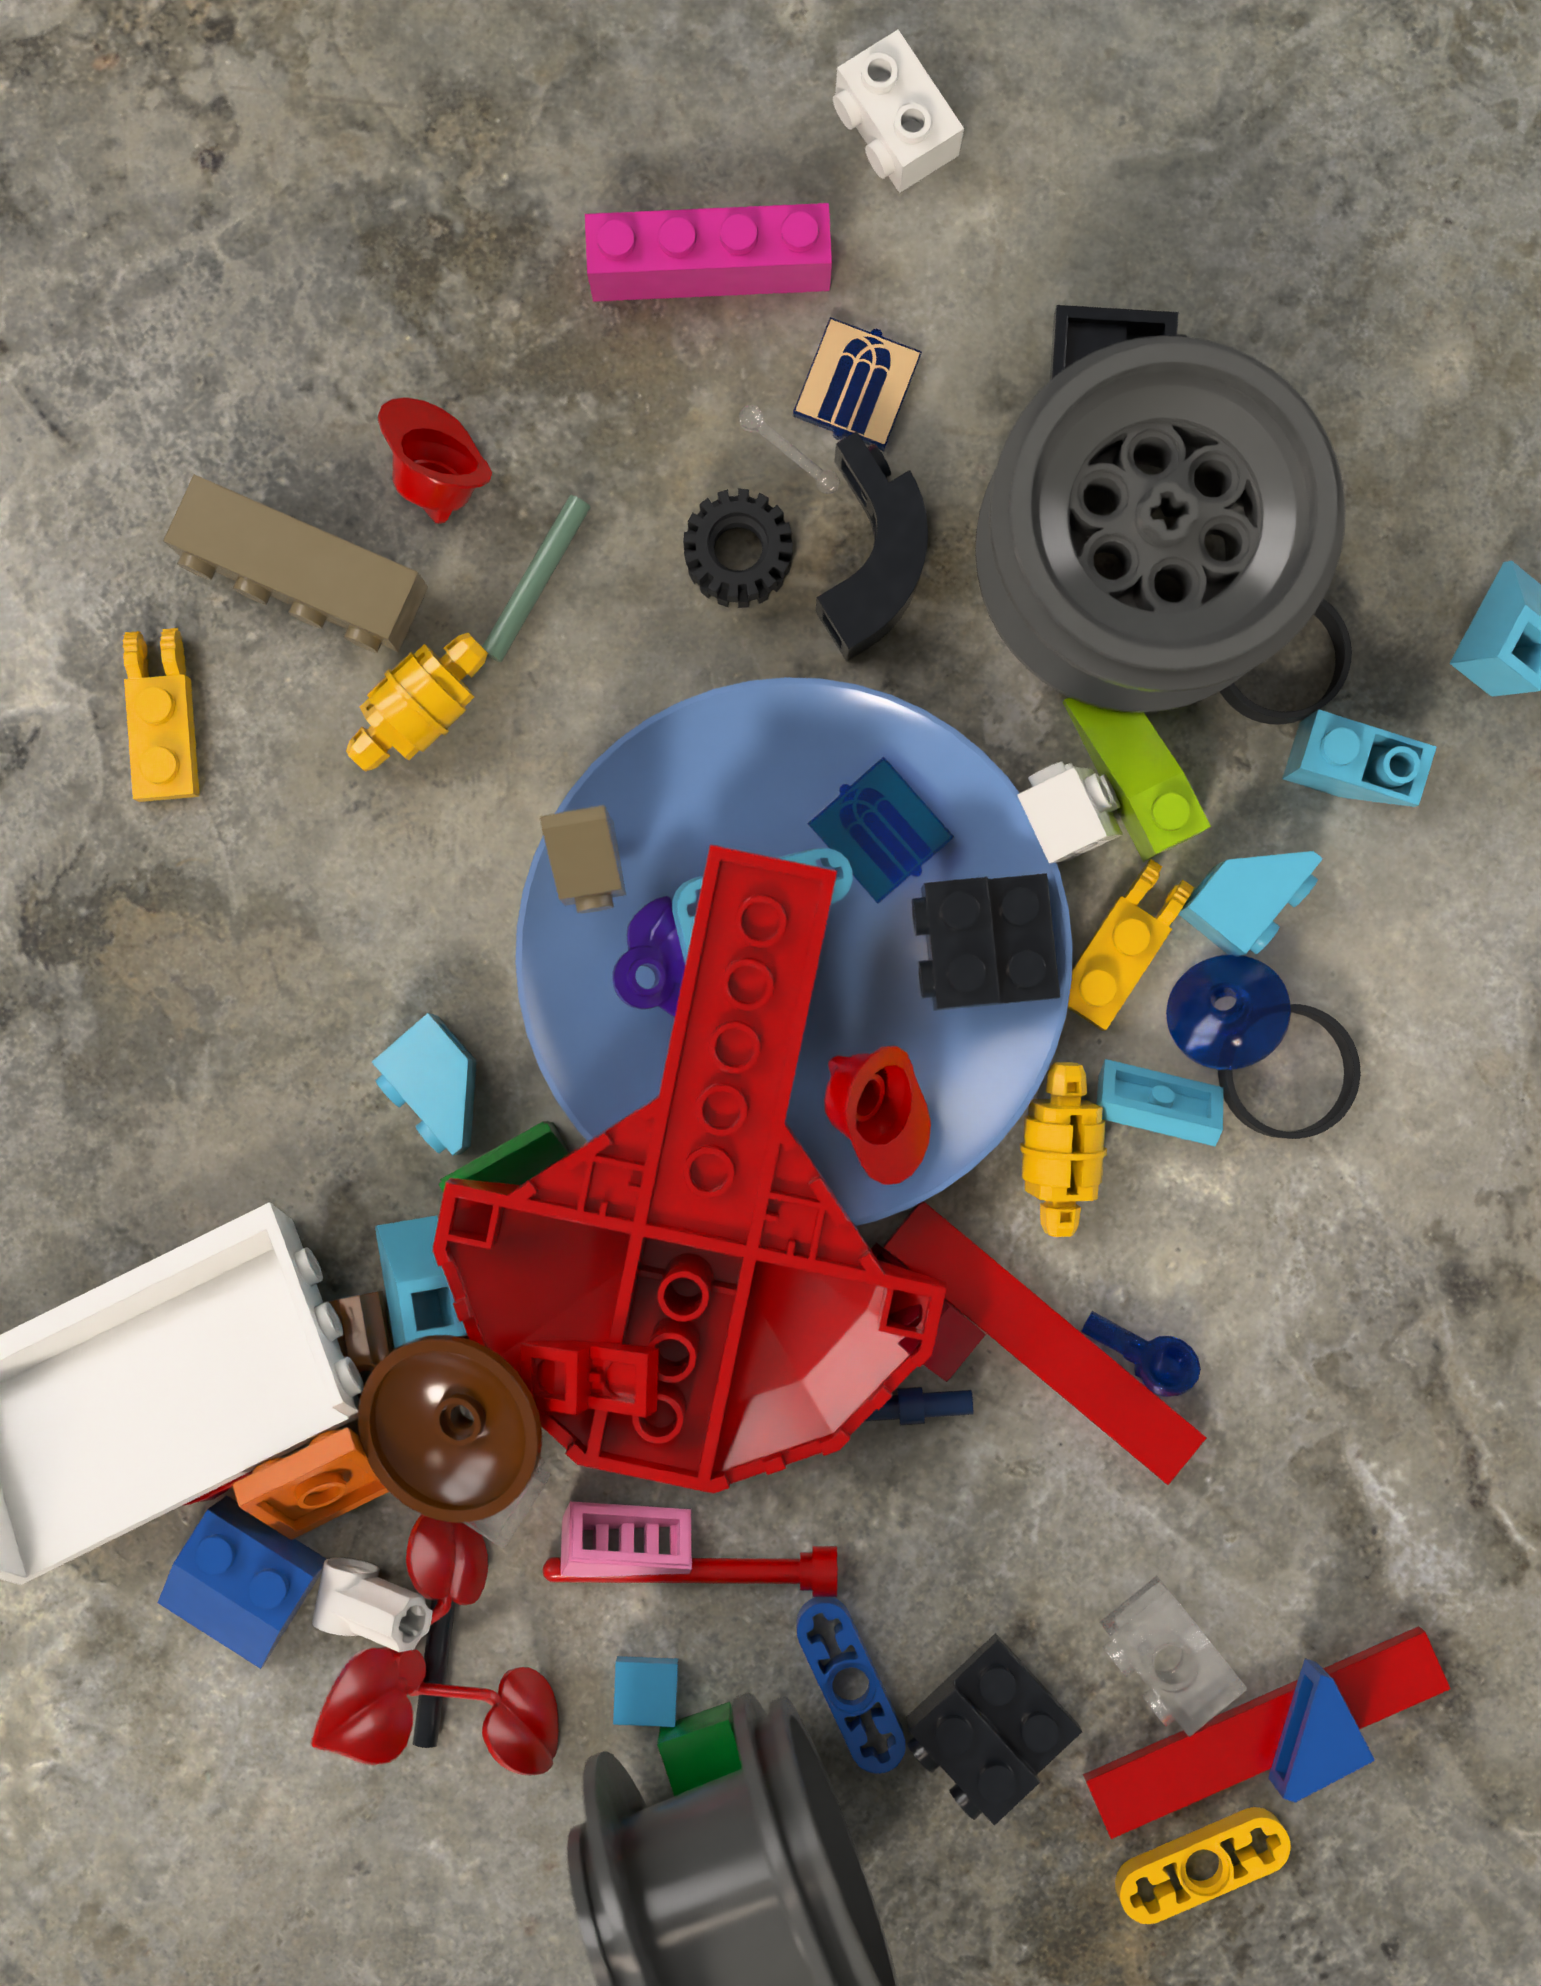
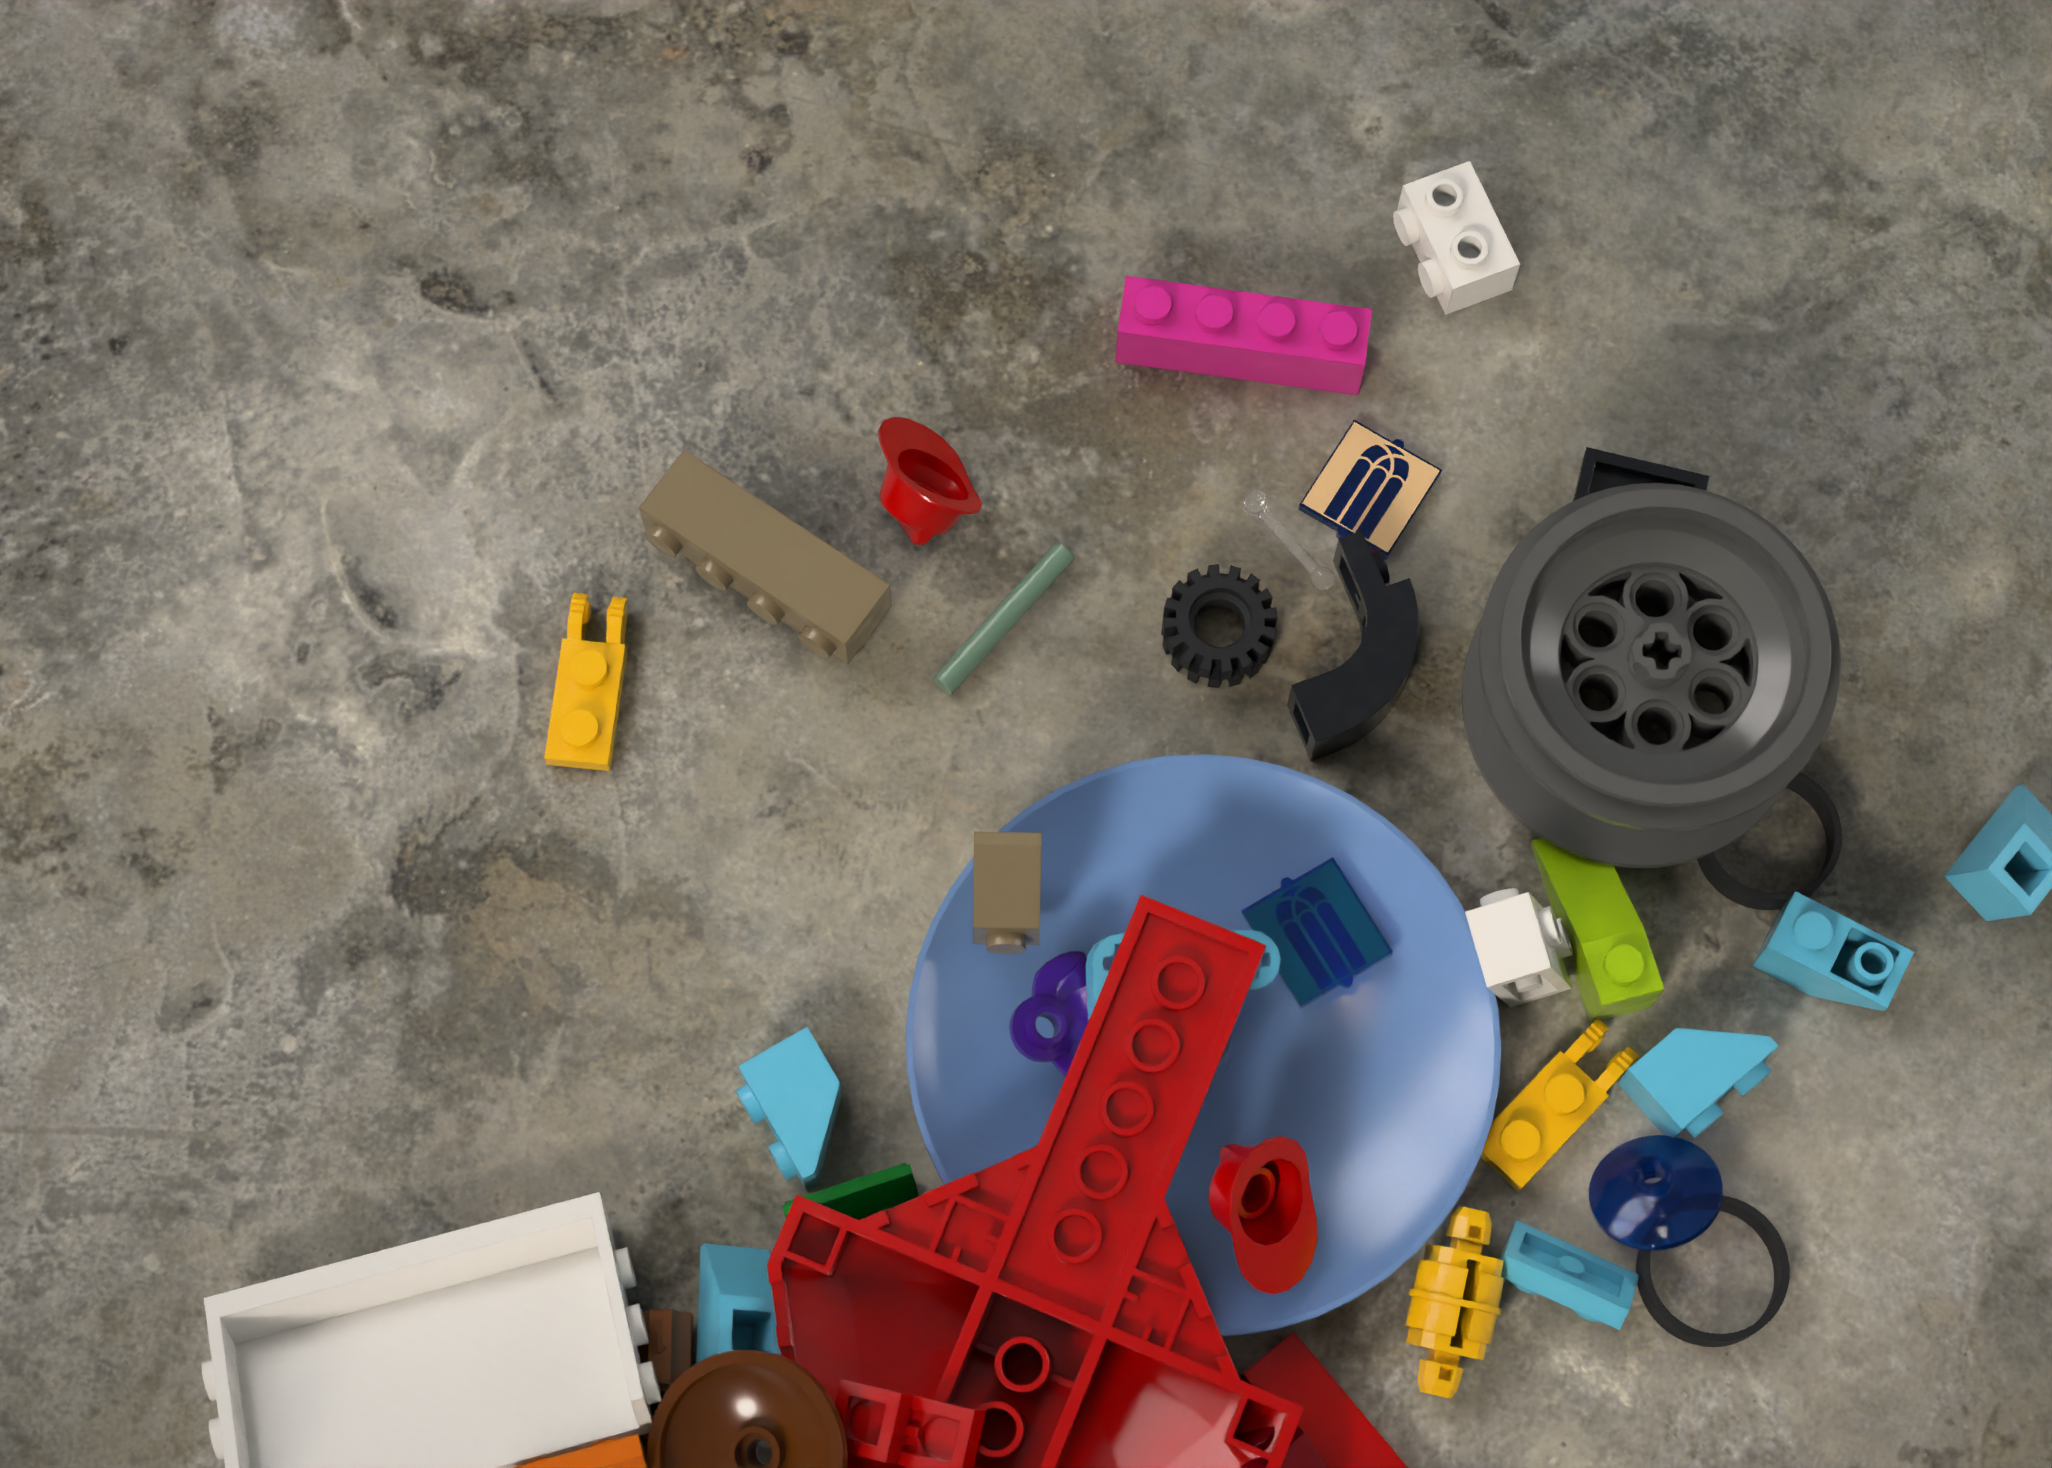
camera: 10 degrees right, 15 degrees down
(416, 702) = (859, 714): yellow piece -> none
(986, 941) = (1408, 1061): black plate -> none

